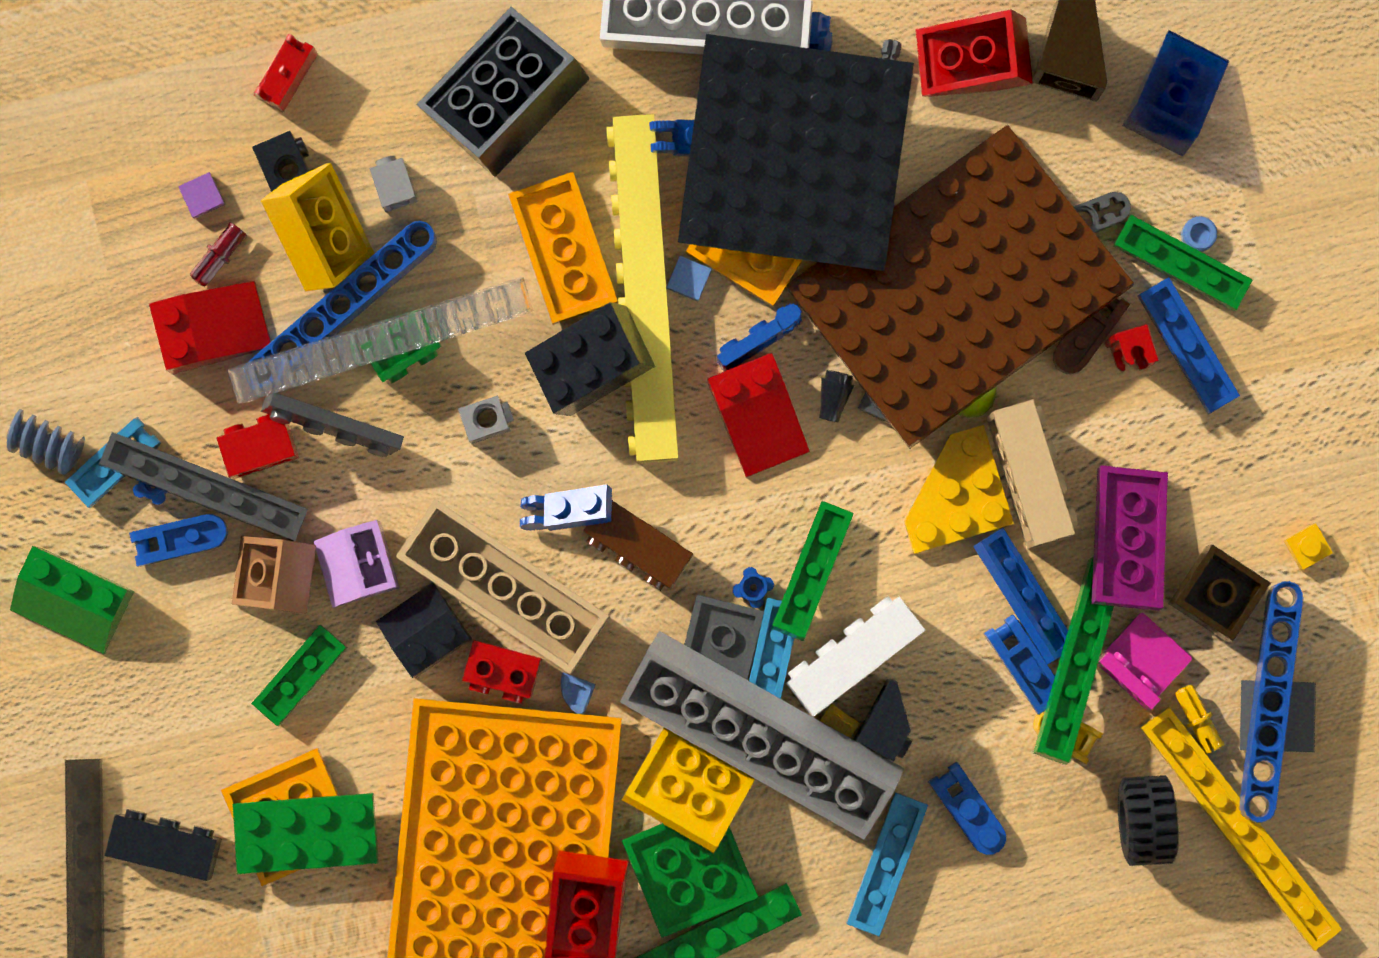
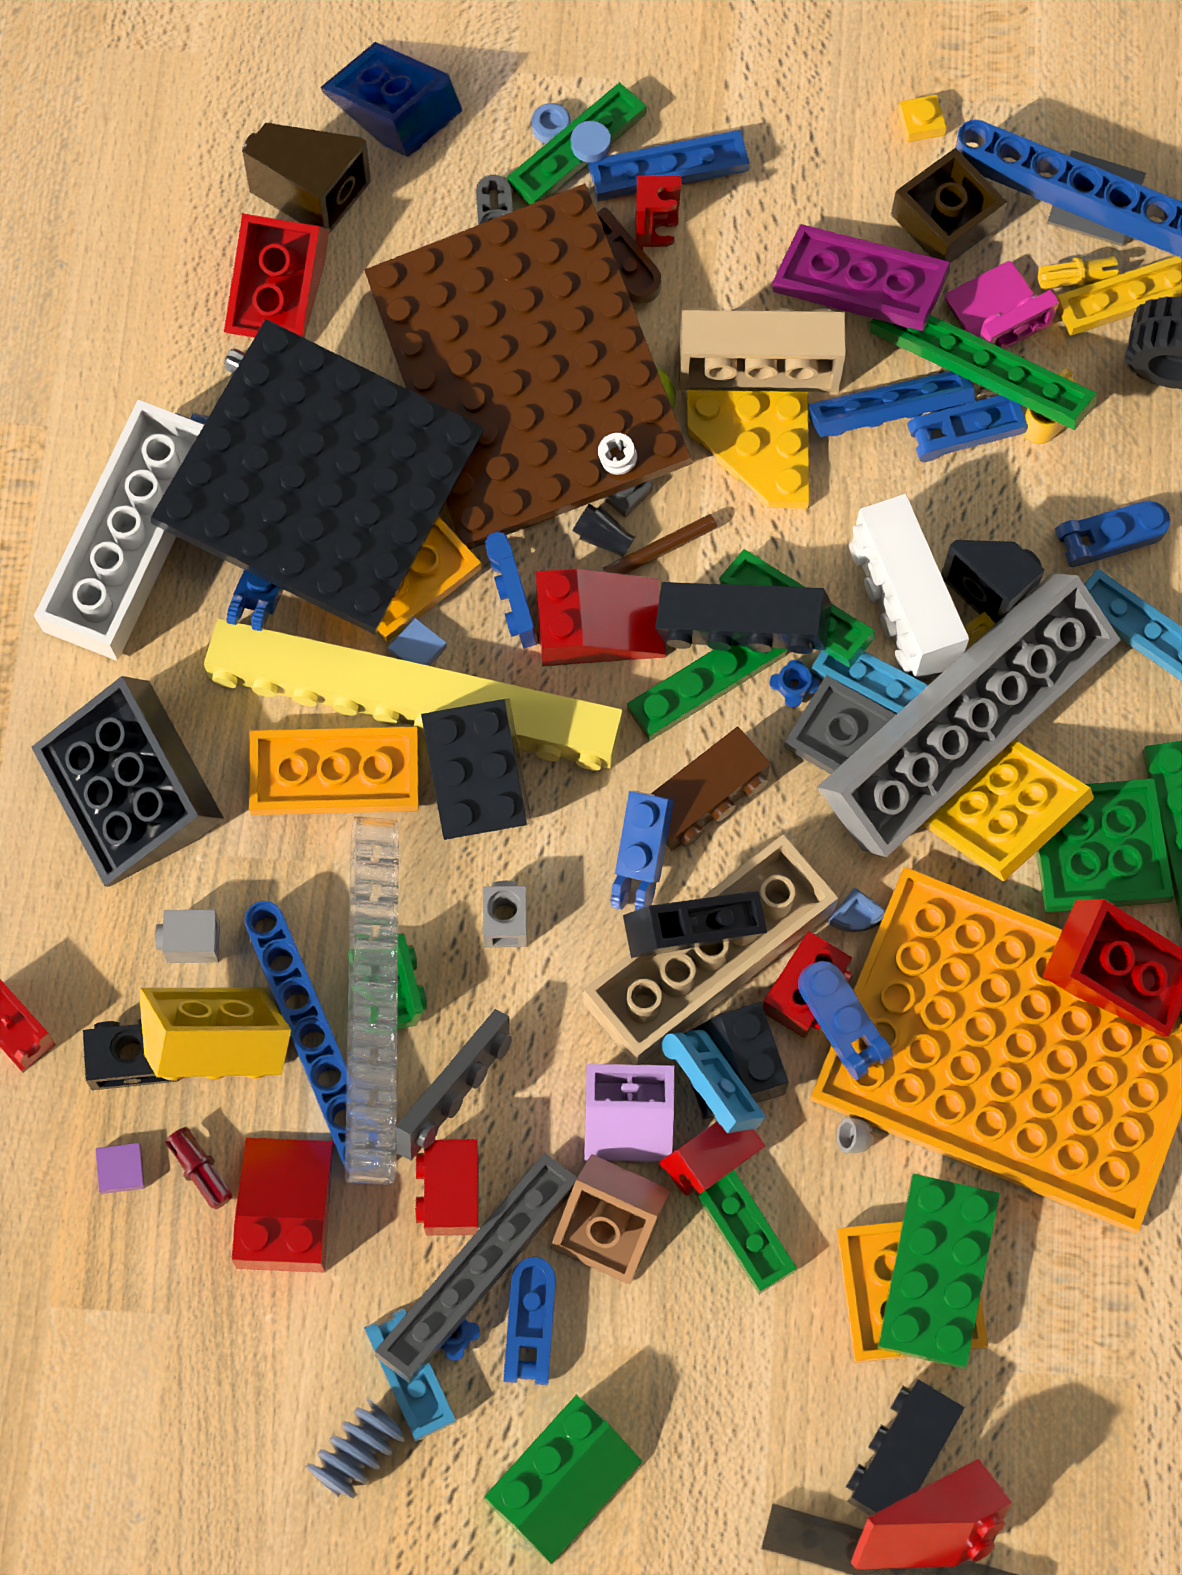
camera: 75 degrees left, 15 degrees down
(111, 887) = (937, 1524): none -> red slope
(343, 636) = (710, 1157): none -> red hinge
(395, 620) = (714, 1080): none -> dark azure plate
(395, 740) = (854, 1135): none -> light grey hinge
(477, 703) = (842, 1017): none -> blue plate
(506, 568) = (693, 923): none -> black slope
(735, 516) = (697, 687): none -> green plate
(785, 530) = (743, 617): none -> black brick
(837, 444) = (662, 546): none -> reddish brown bar
(889, 375) = (617, 440): none -> white bush
(1183, 273) = (590, 141): none -> medium blue tile

